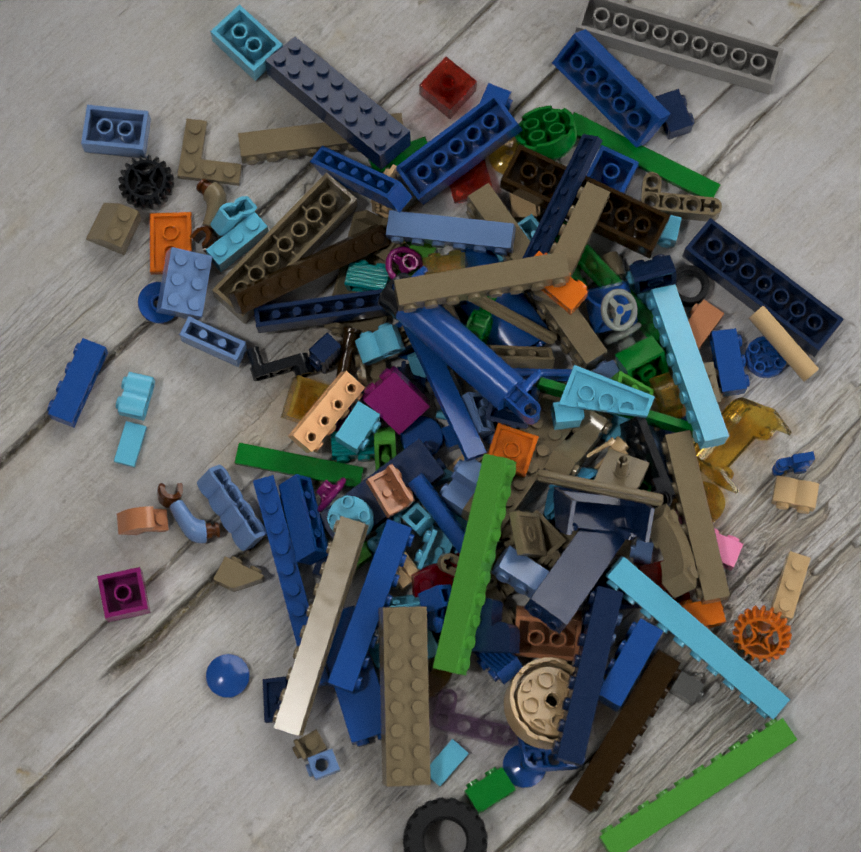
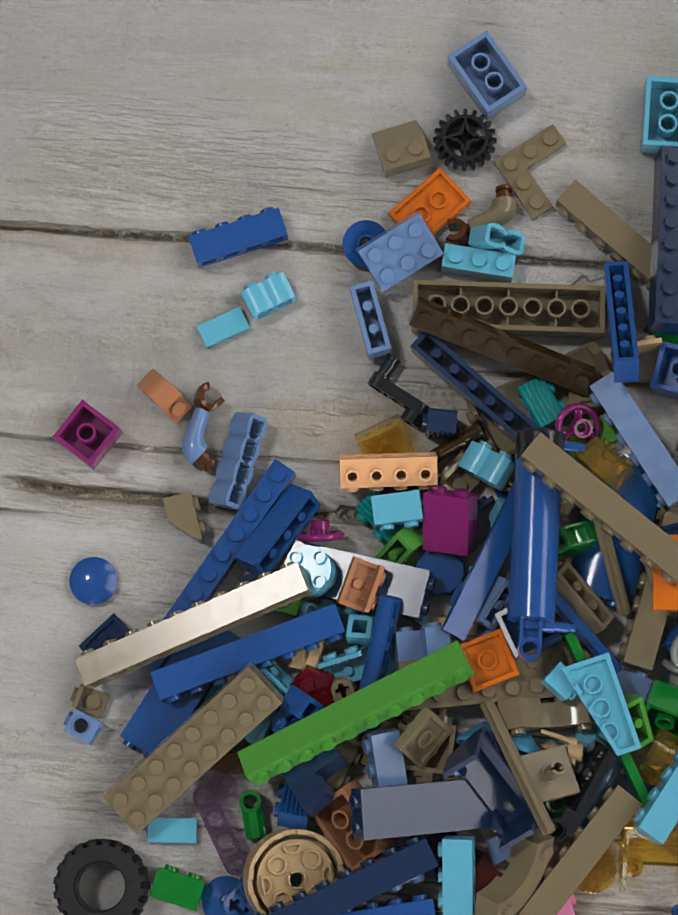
camera: 60 degrees right, 5 degrees up
(293, 464) = (325, 485): green tile -> none
(484, 699) = (253, 817): none -> green piece

